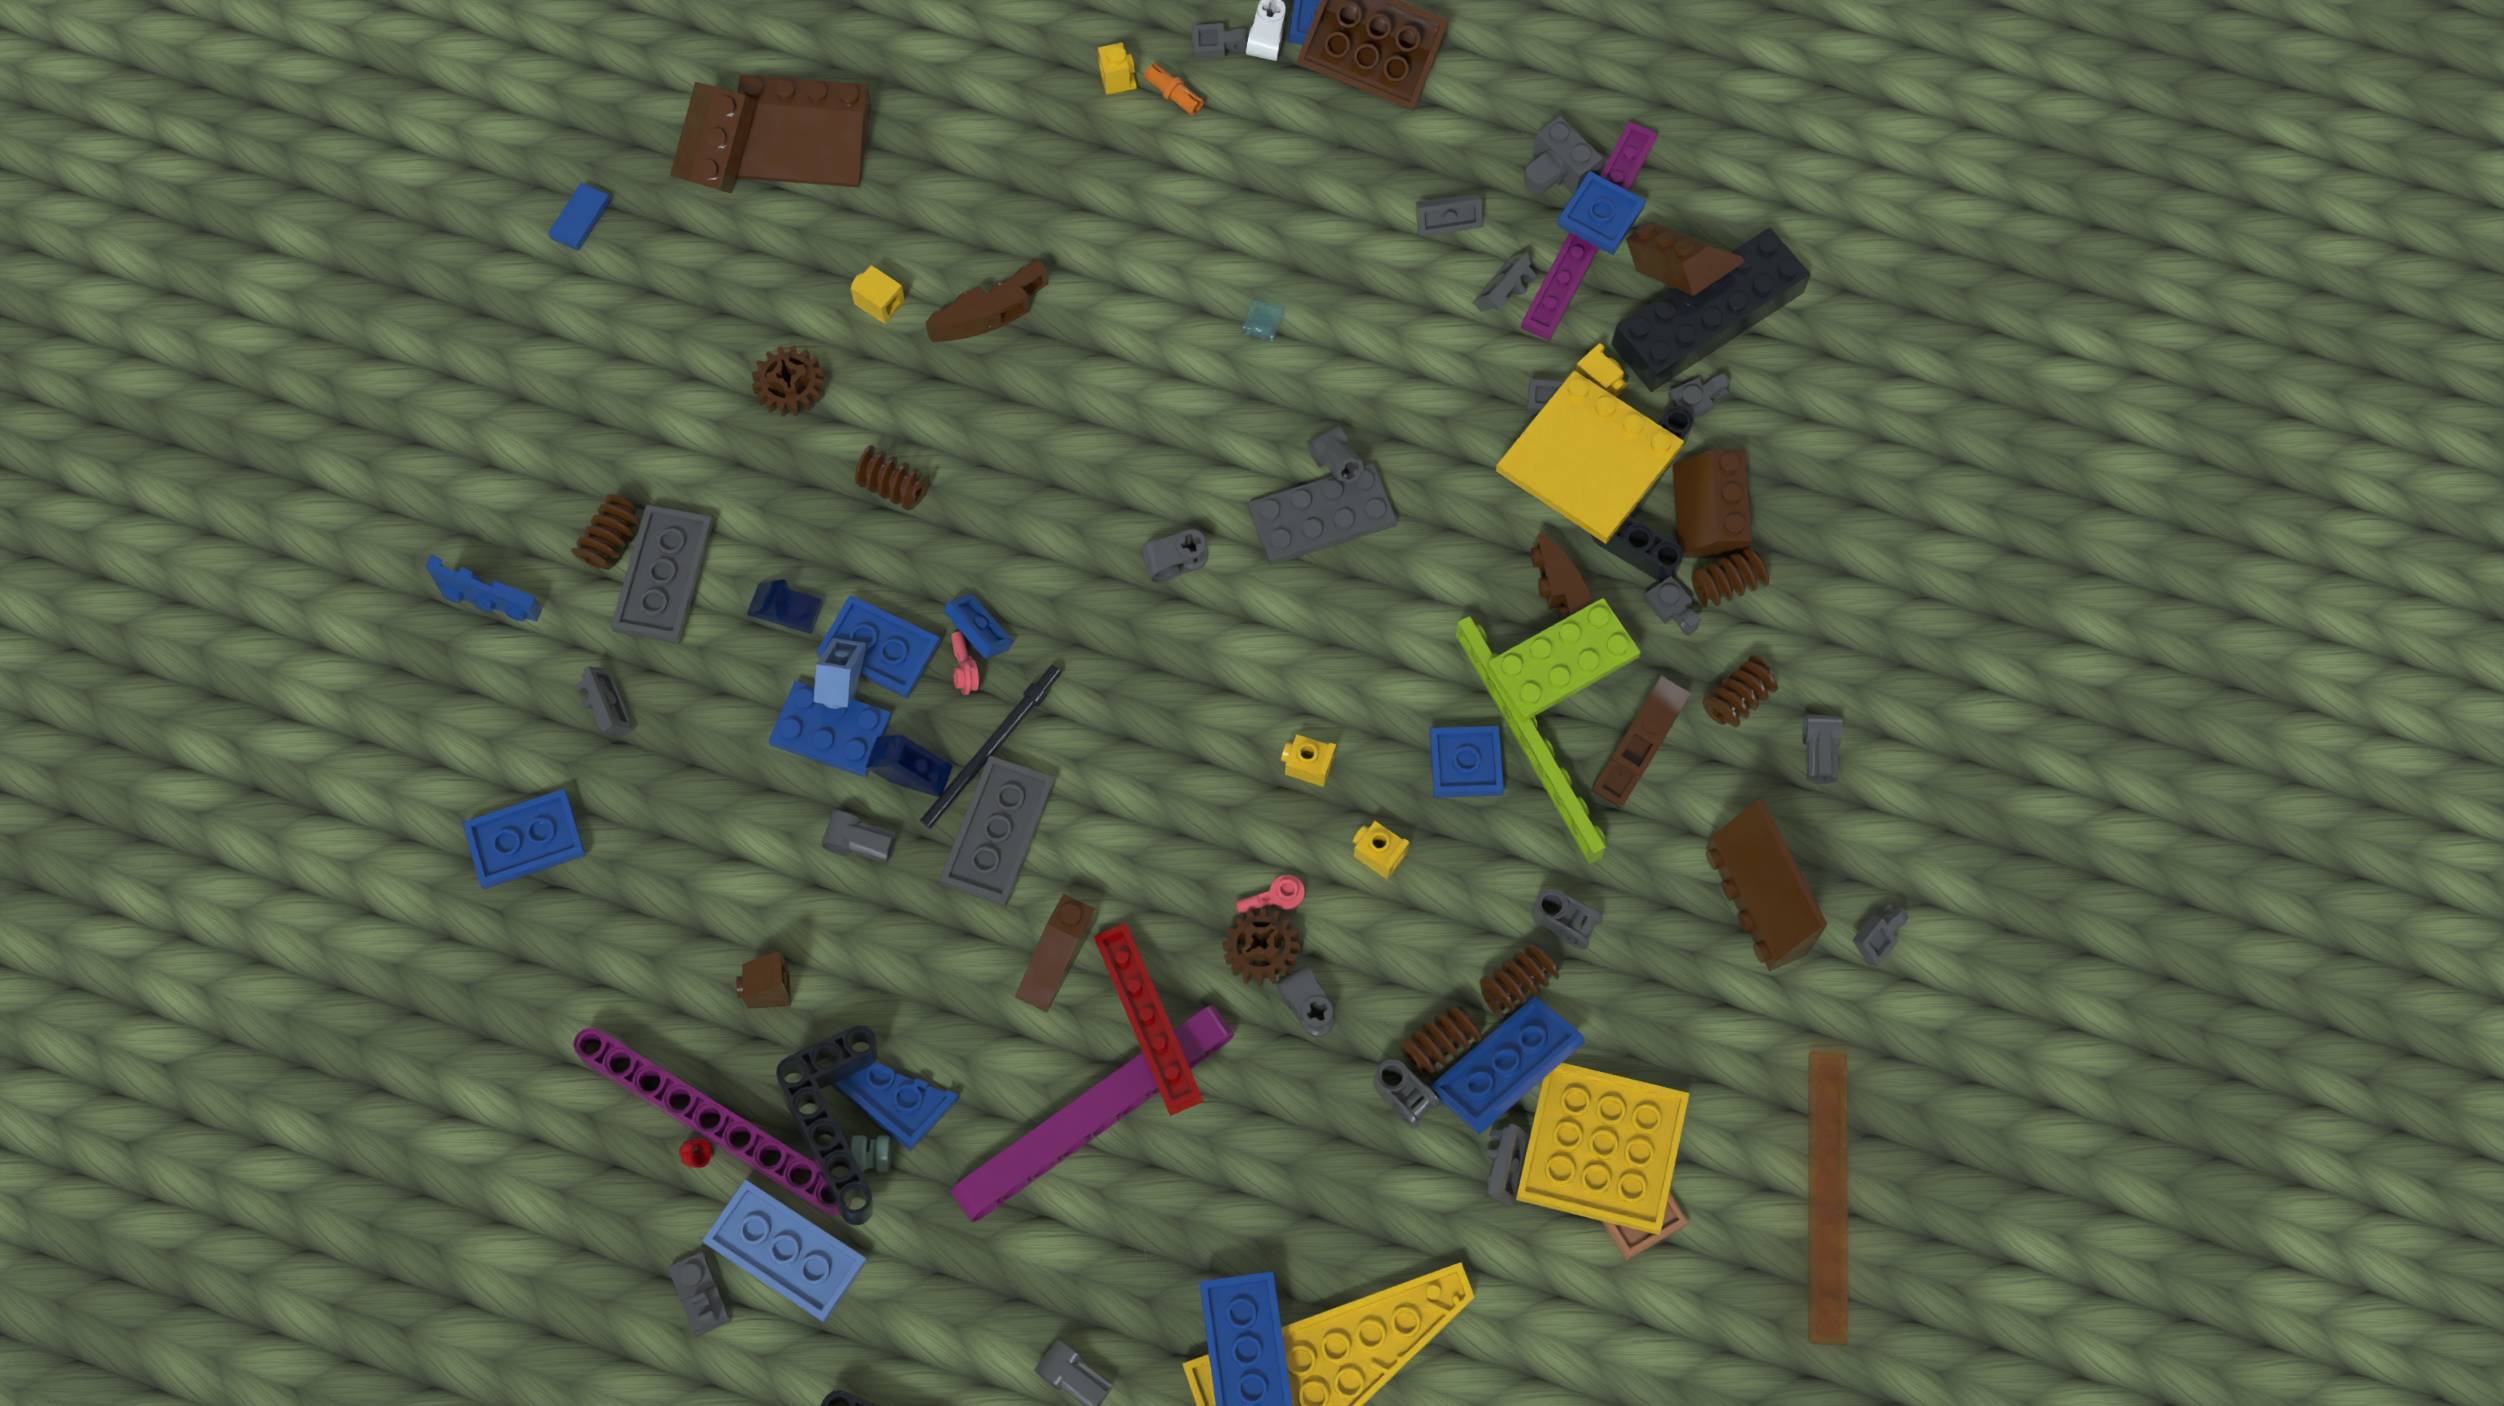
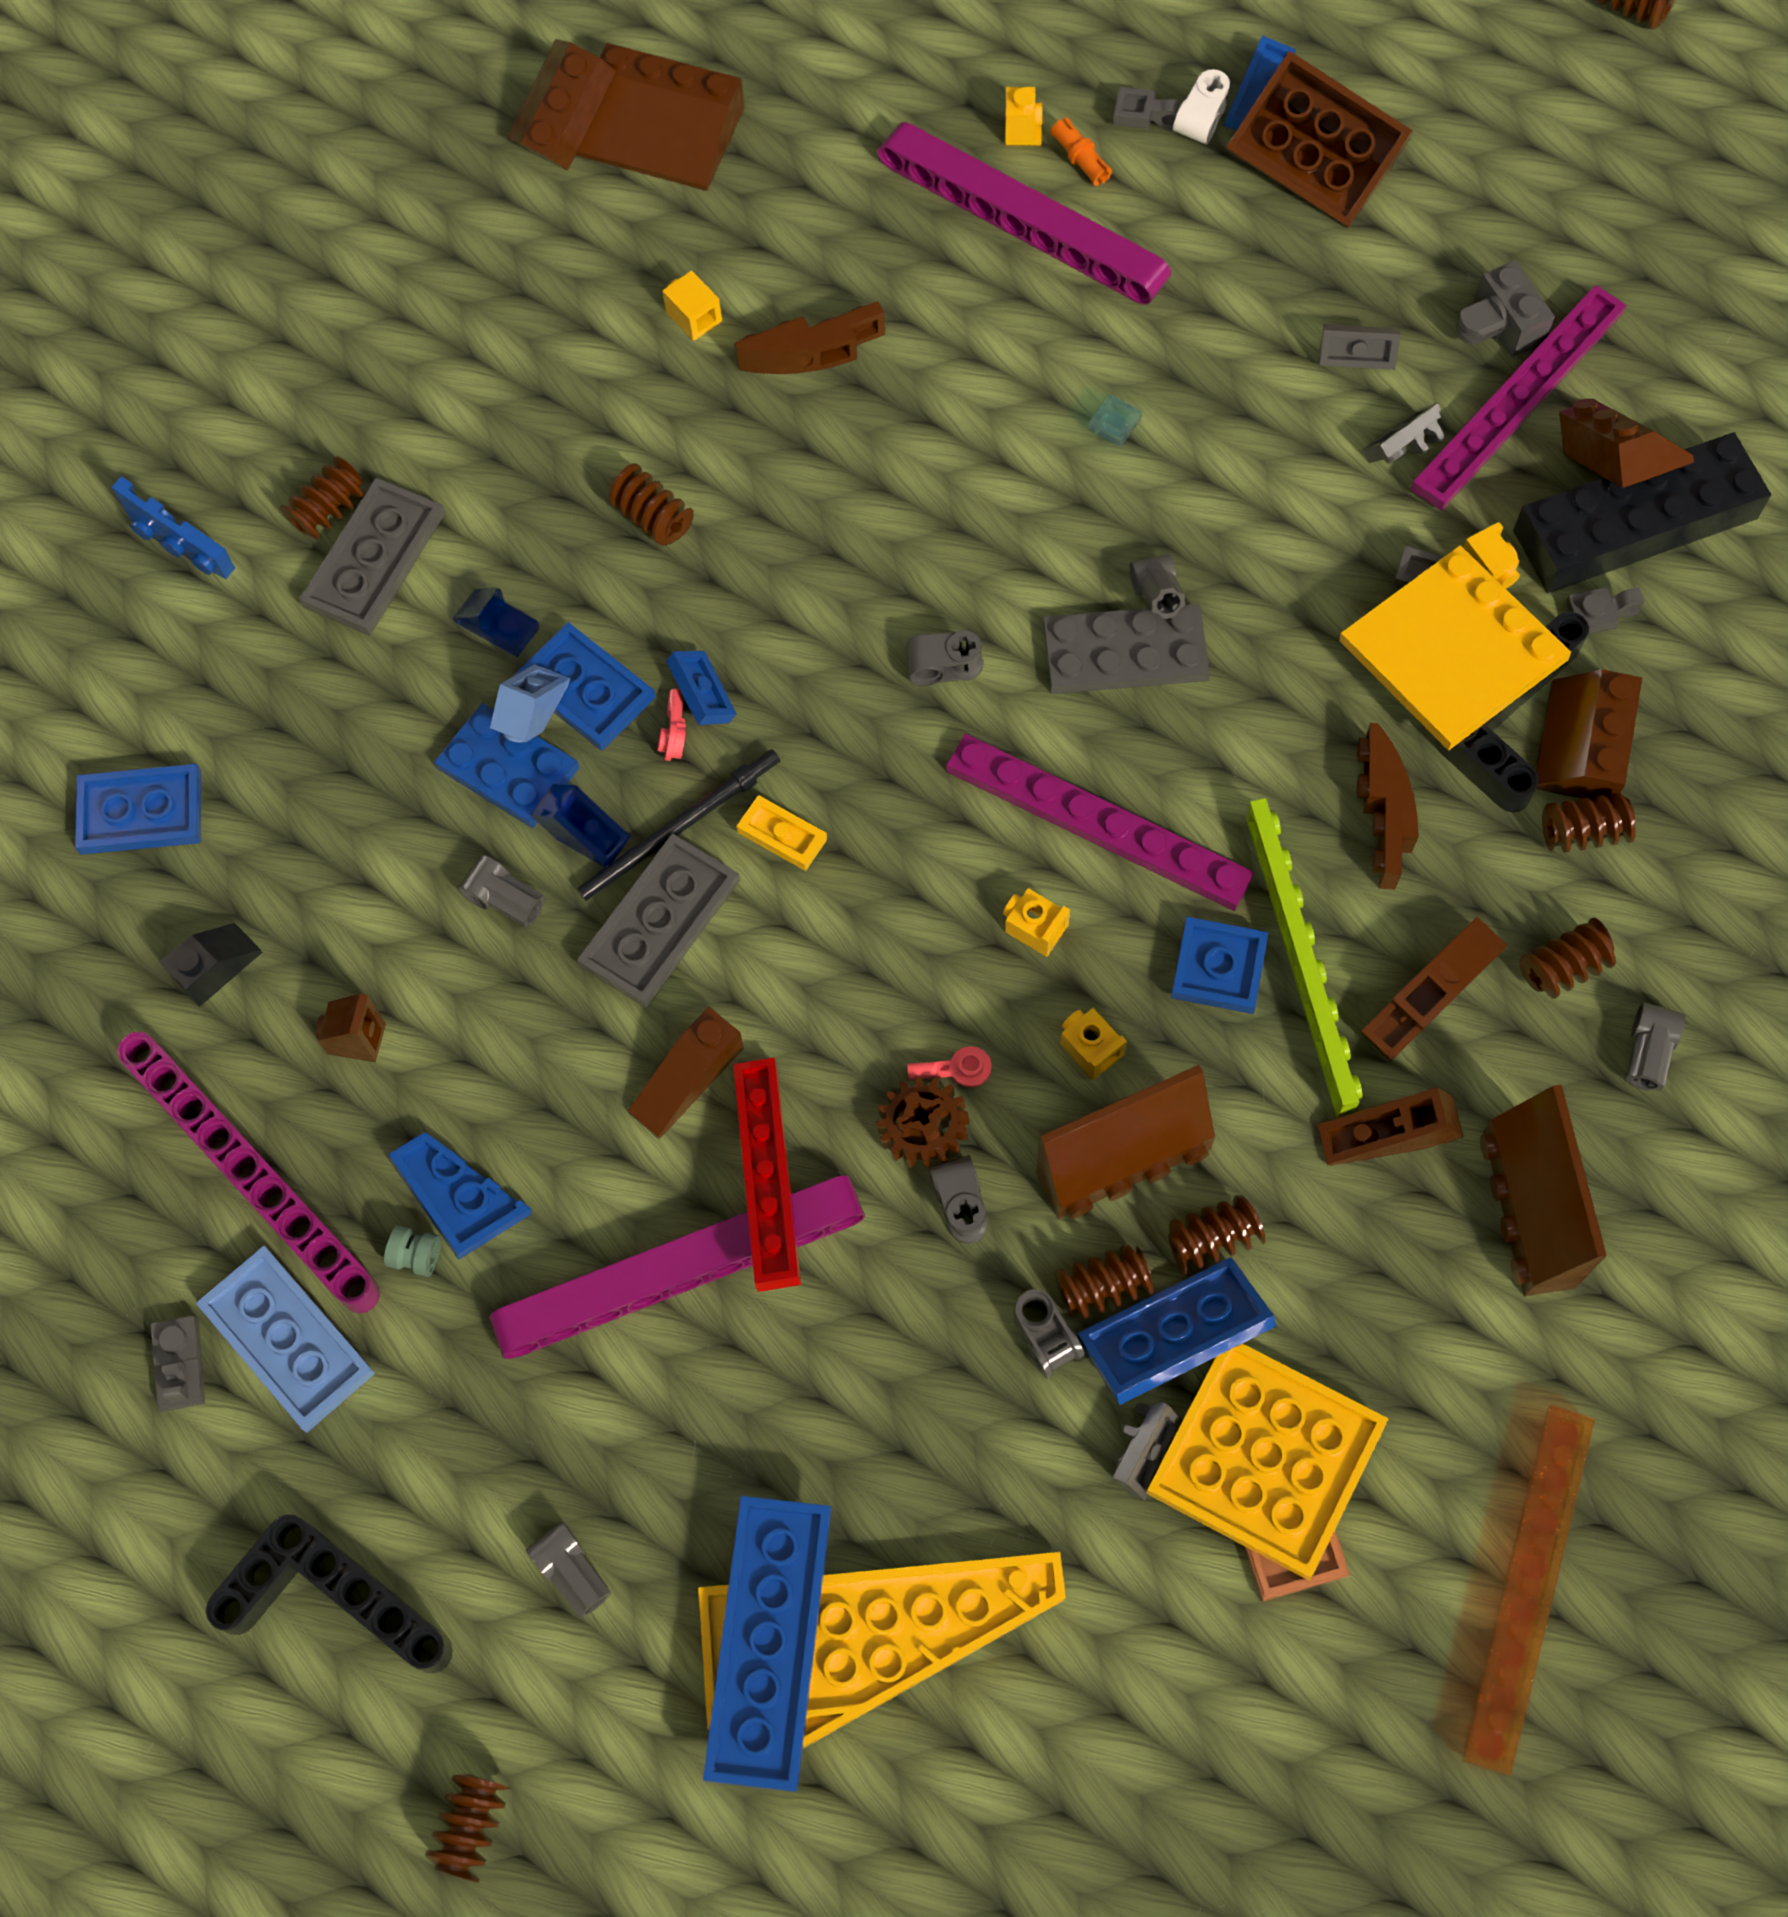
camera: 20 degrees right, 0 degrees up
(579, 216) = (397, 162): blue tile -> none
(605, 701) = (270, 679): dark grey plate -> none
(626, 954) = (210, 960): none -> black slope
(698, 1158) = (220, 1208): red hinge -> none
(772, 386) = (568, 378): reddish brown gear -> none
(822, 1121) = (361, 1199): black beam -> none
(1079, 734) = (781, 833): none -> yellow plate
(1138, 153) = (1024, 213): none -> magenta beam
(1337, 664) = (1100, 822): none -> magenta plate
(1431, 926) = (1126, 1144): none -> reddish brown slope
(1563, 659) = (1363, 872): lime plate -> none
(1568, 918) = (1294, 1176): dark grey piece -> none
(1601, 213) = (1537, 377): blue plate -> none
(1635, 862) = (1392, 1128): none -> reddish brown slope
(1672, 602) = (1512, 836): dark grey plate -> none
(1878, 936) = (1668, 1284): dark grey plate -> none

